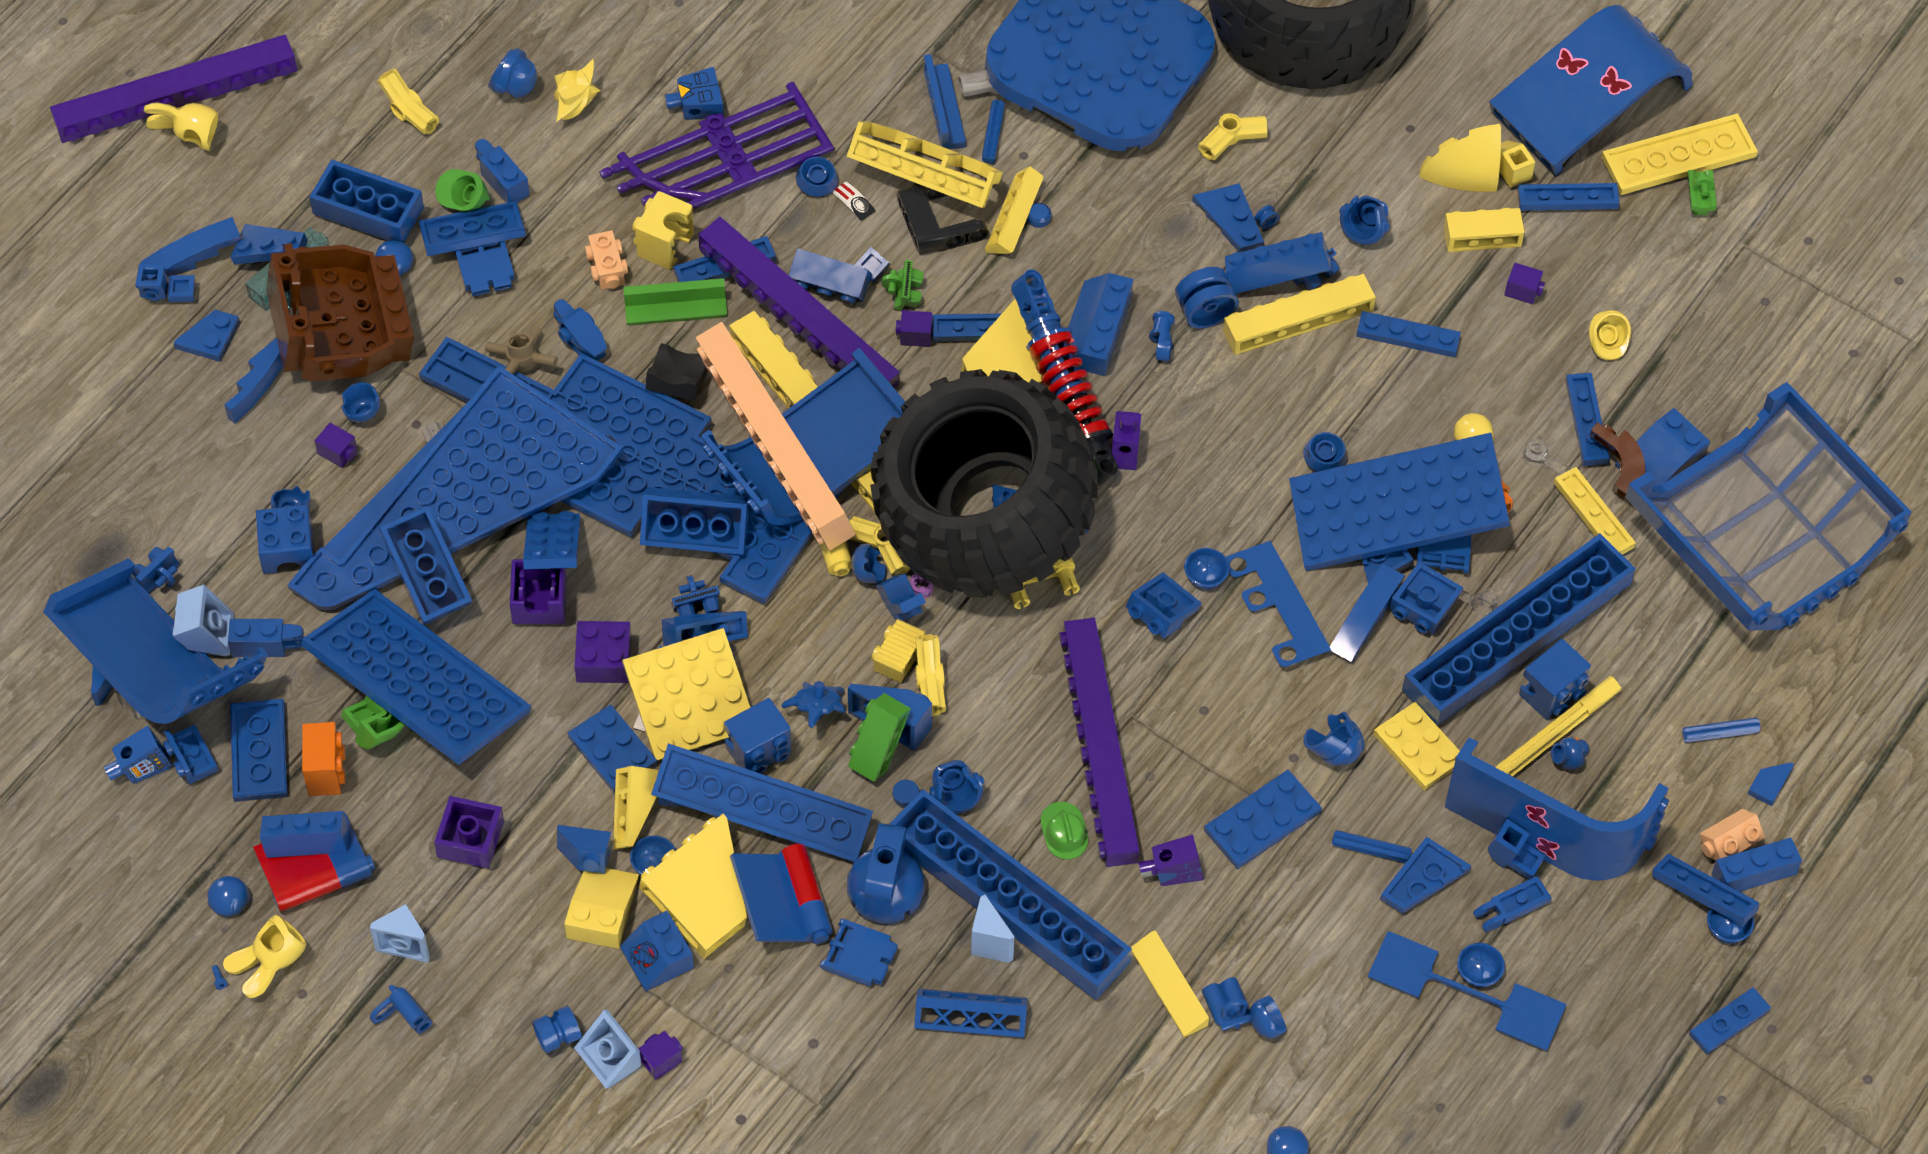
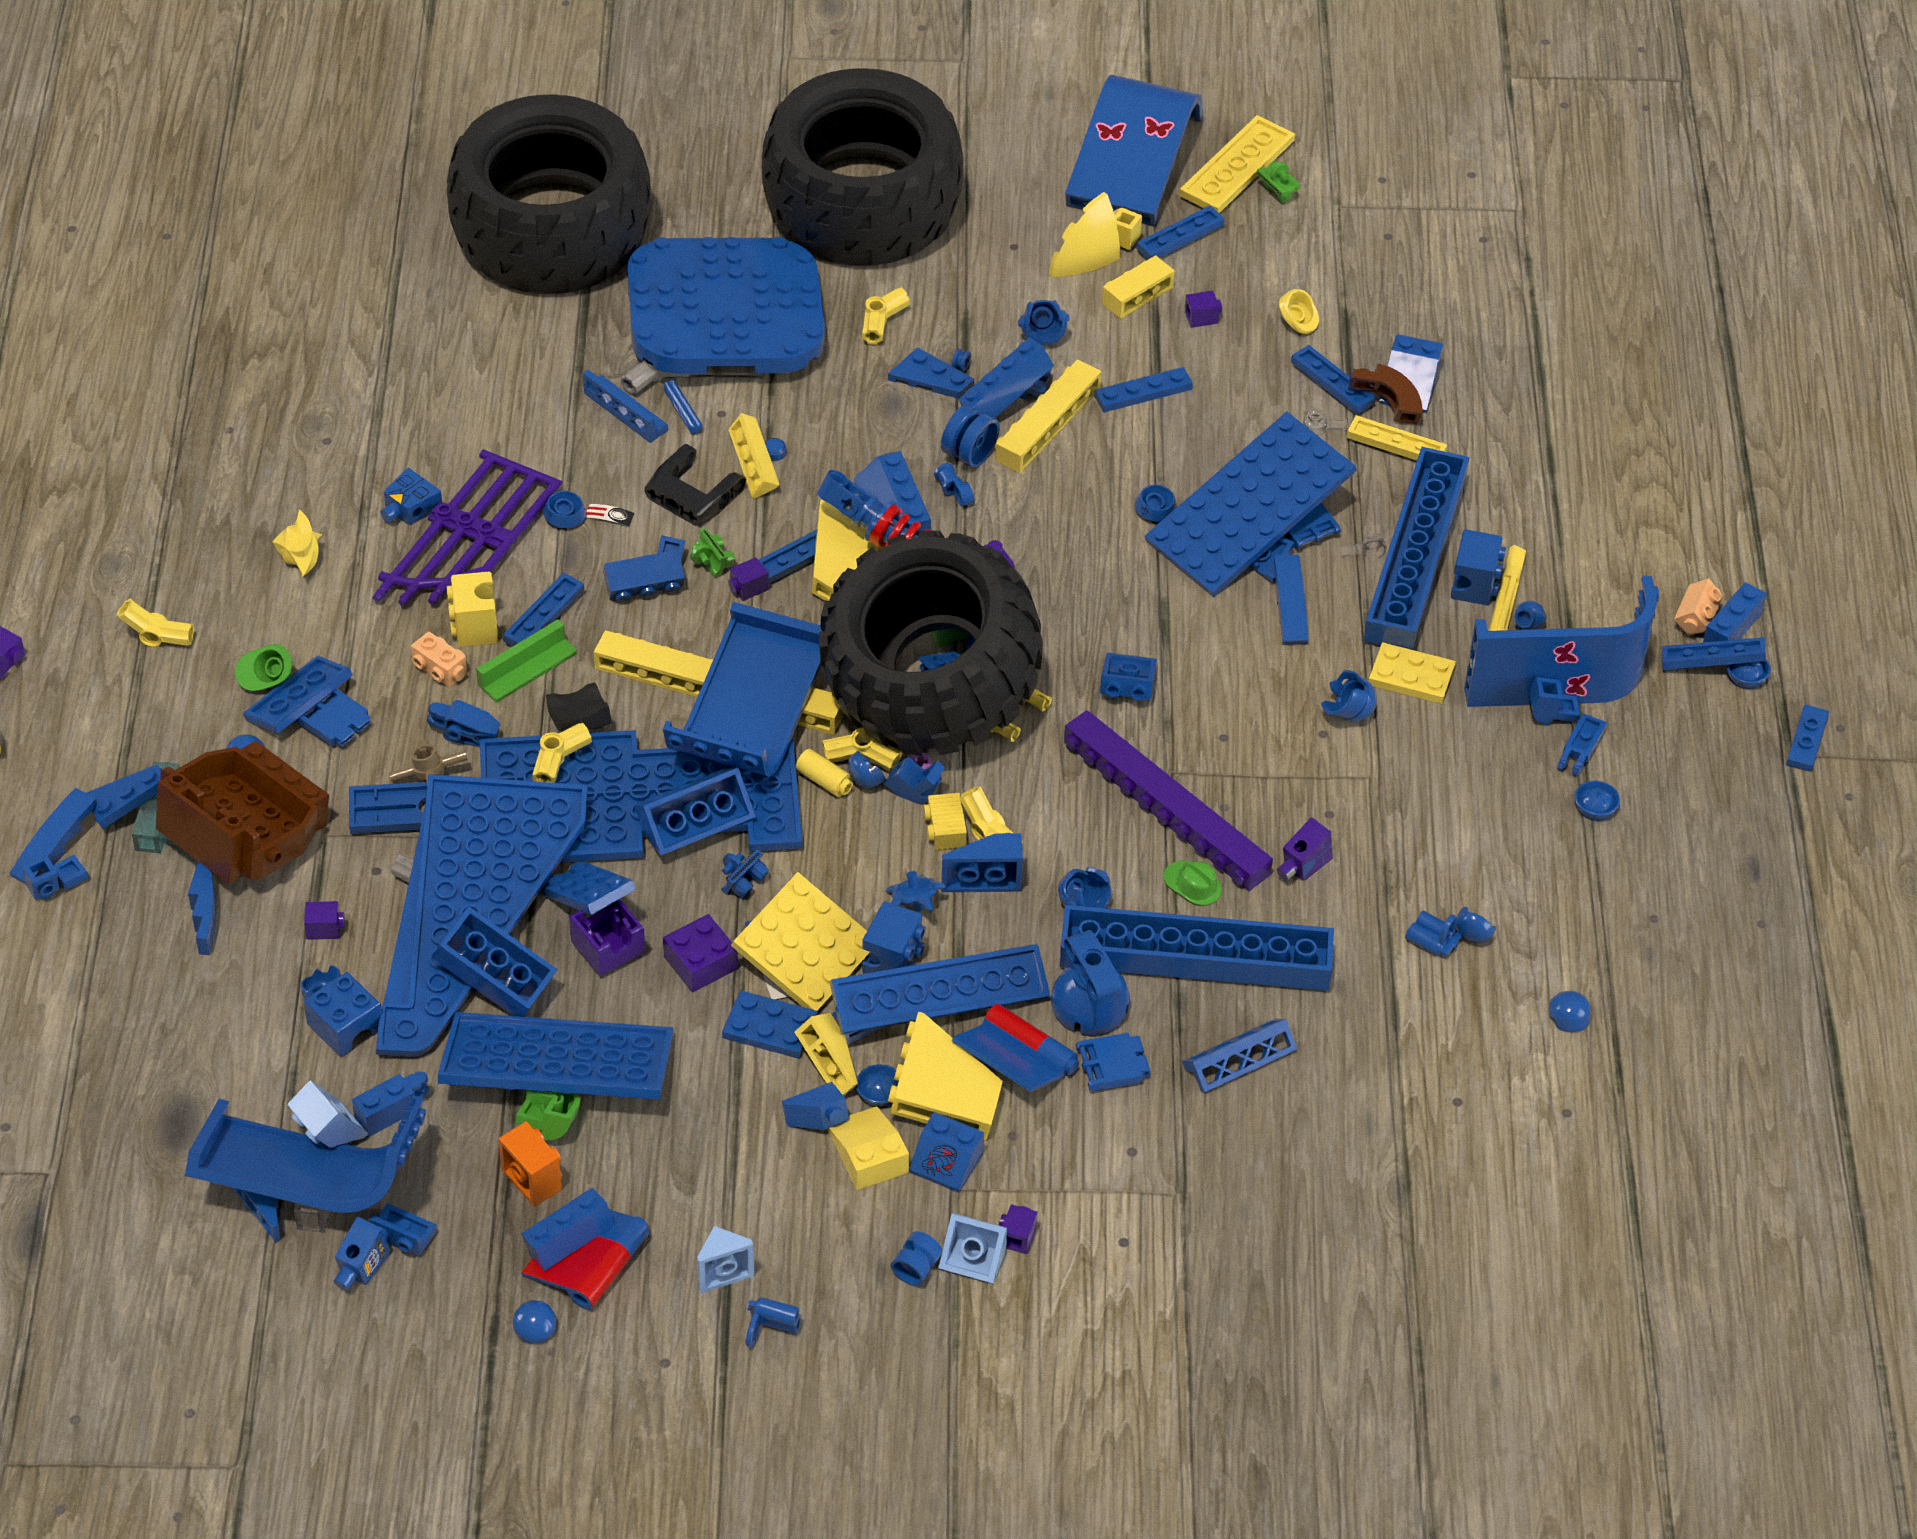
camera: 35 degrees left, 10 degrees down
(159, 571) = (247, 1097): blue hips -> none
(209, 336) = (126, 897): blue wing -> none
(220, 982) = (586, 1394): blue piece -> none
(258, 750) = (459, 1194): blue tile -> none
(275, 947) = (614, 1333): light yellow piece -> none
(360, 402) = (316, 874): blue hair -> none
(366, 202) = (186, 718): blue brick -> none
(469, 832) = (708, 1150): dark purple brick -> none
(501, 172) = (298, 638): blue hinge -> none
(514, 74) = (234, 558): blue helmet -> none
(614, 406) = (555, 748): none -> light yellow piece
(693, 625) = (759, 894): blue slope -> none
(774, 437) = (716, 705): light nougat brick -> none
(787, 298) = (620, 607): dark purple brick -> none
(878, 736) = (995, 885): bright green brick -> none
(904, 792) = (1044, 923): blue piece -> none
(919, 169) = (655, 452): light yellow plate -> none
(990, 934) = (1210, 982): light blue slope -> none
(1170, 984) = (1379, 945): light yellow slope -> none
(1206, 568) = (1138, 633): blue hat -> none
(1262, 819) = (1340, 788): blue plate -> none
(1282, 592) = (1211, 620): blue piece -> none
(1371, 846) = (1440, 762): blue axle -> none
(1423, 875) = (1497, 760): blue wing -> none
(1425, 598) = (1327, 564): blue plate -> none
(1472, 425) = (1252, 427): light yellow hair -> none
(1524, 1015) = (1545, 832): blue hinge -> none
(1721, 729) = (1622, 542): axle -> none
(1769, 782) = (1689, 560): blue tile -> none
(1775, 514) = (1538, 359): clear window -> none

